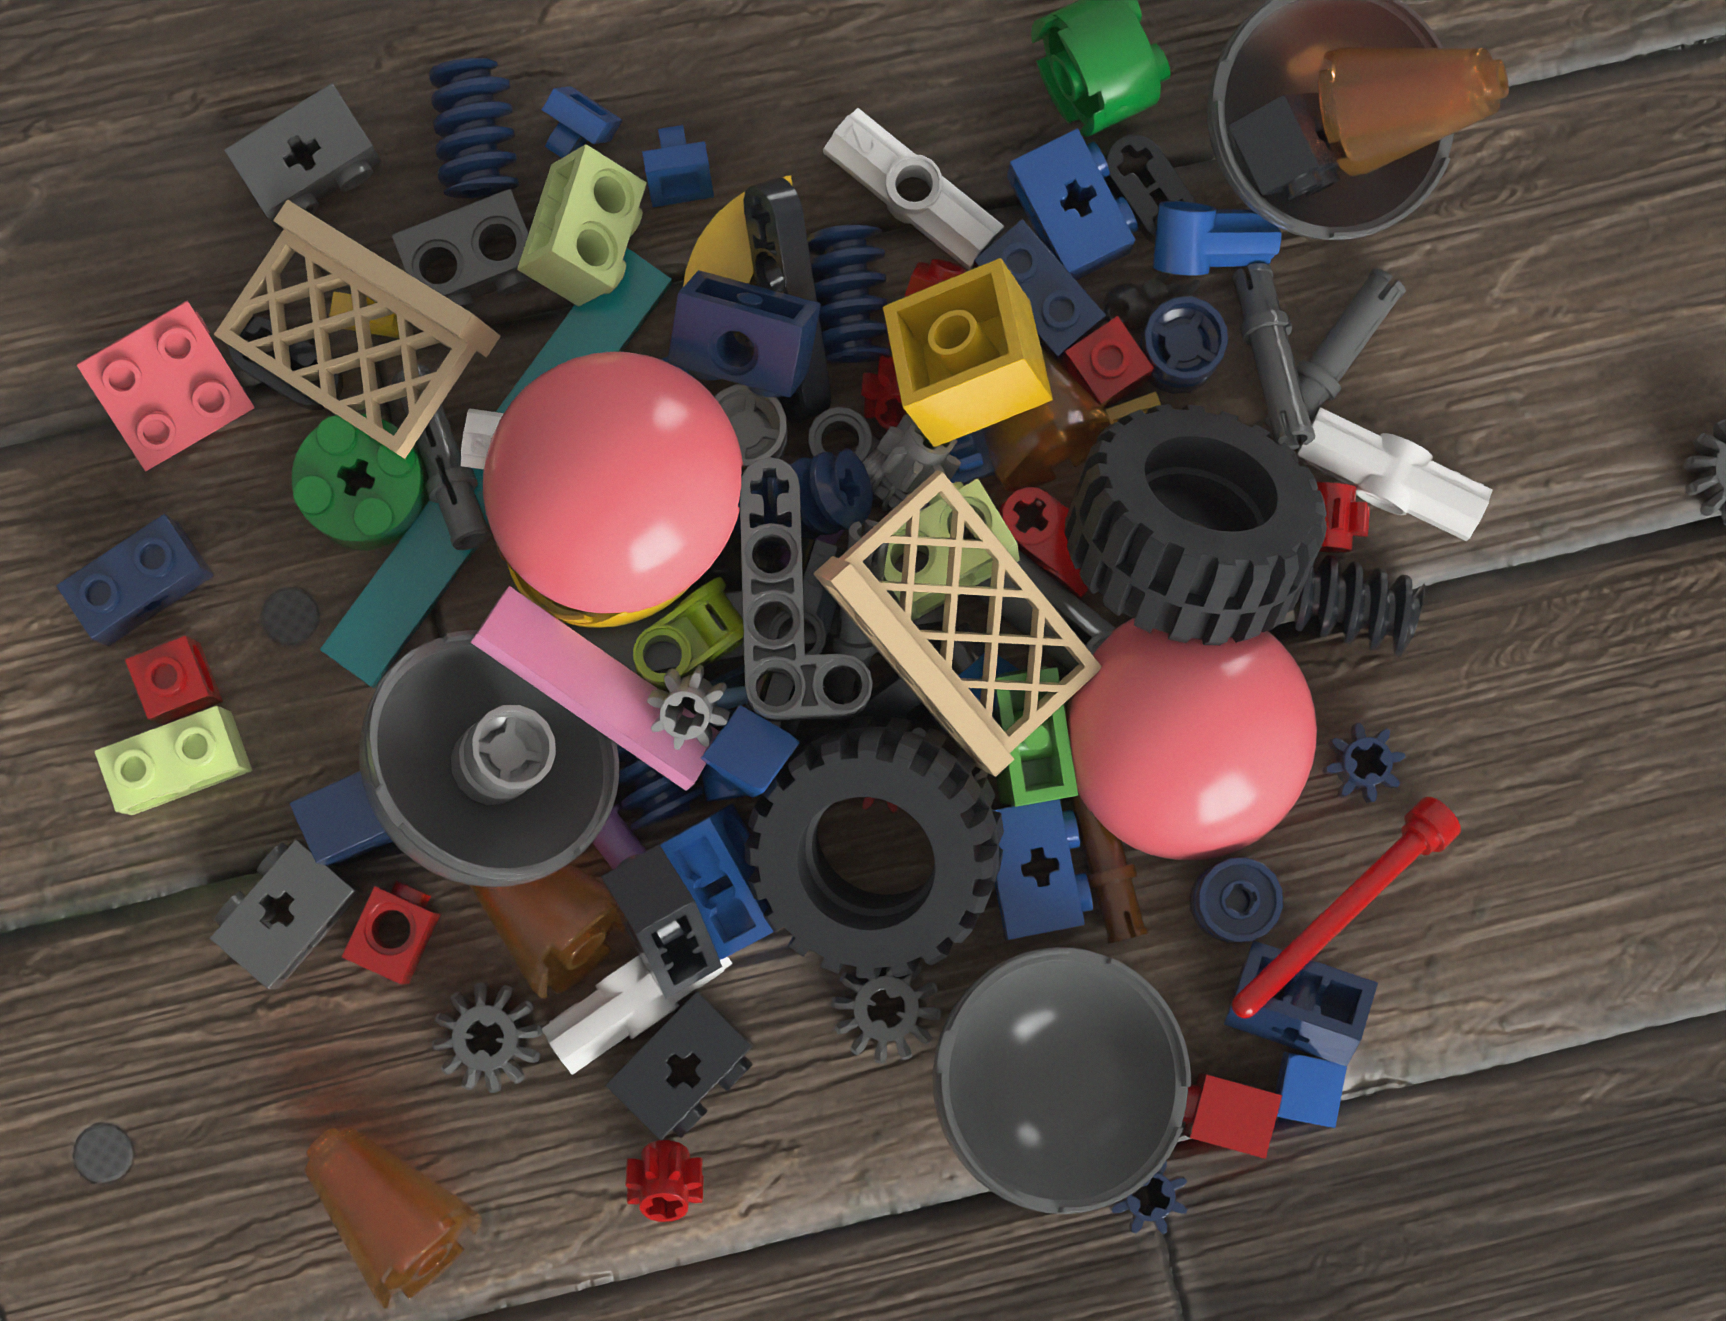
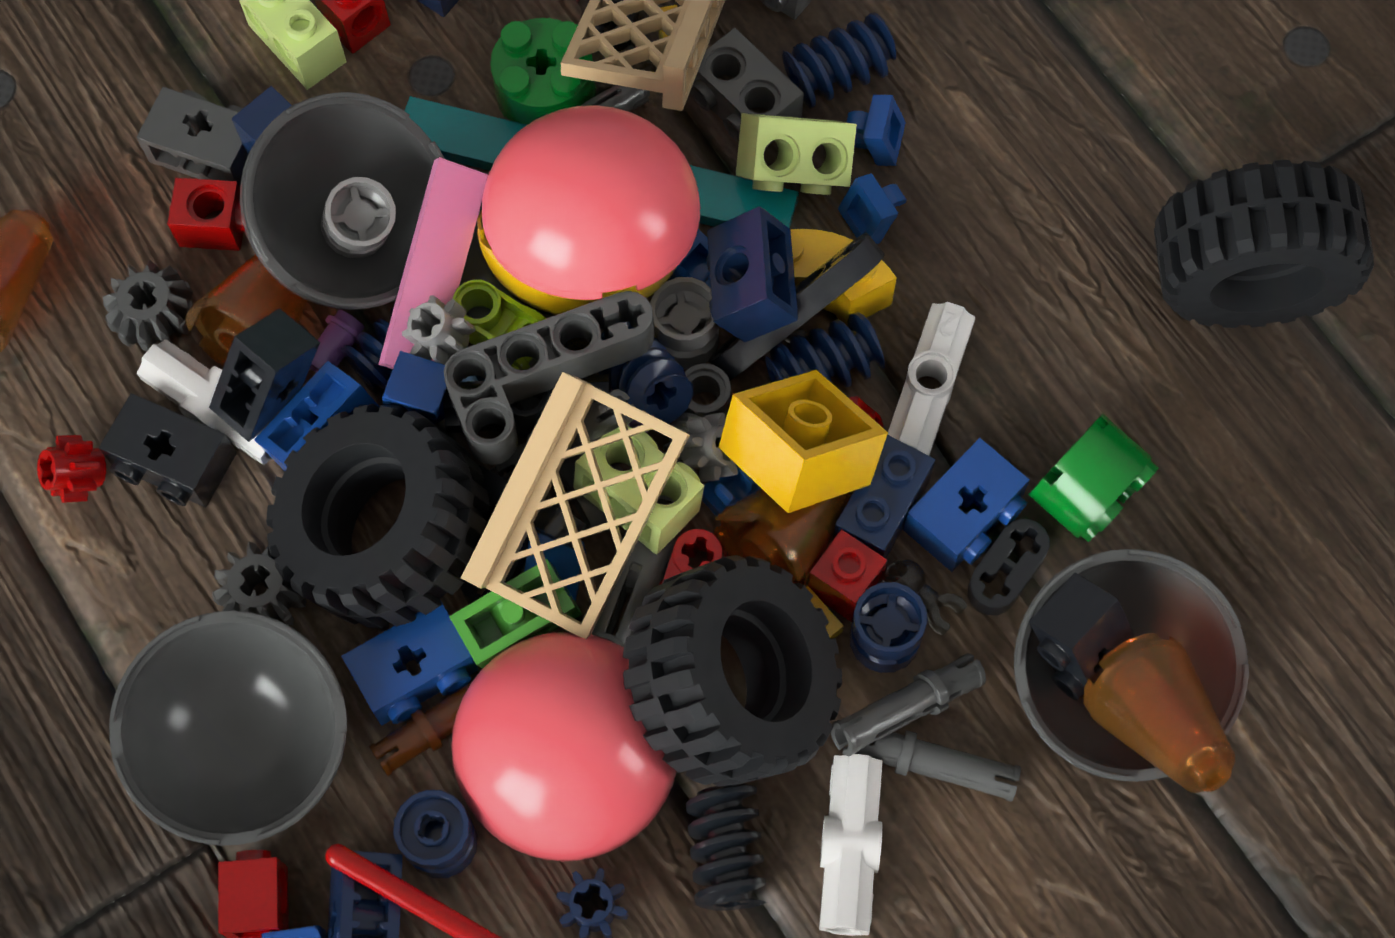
camera: 75 degrees right, 15 degrees down
(1153, 1211) = (173, 864): dark blue gear -> none
(1200, 237) = (981, 605): blue piece -> none
(1343, 518) = (792, 802): red gear -> none

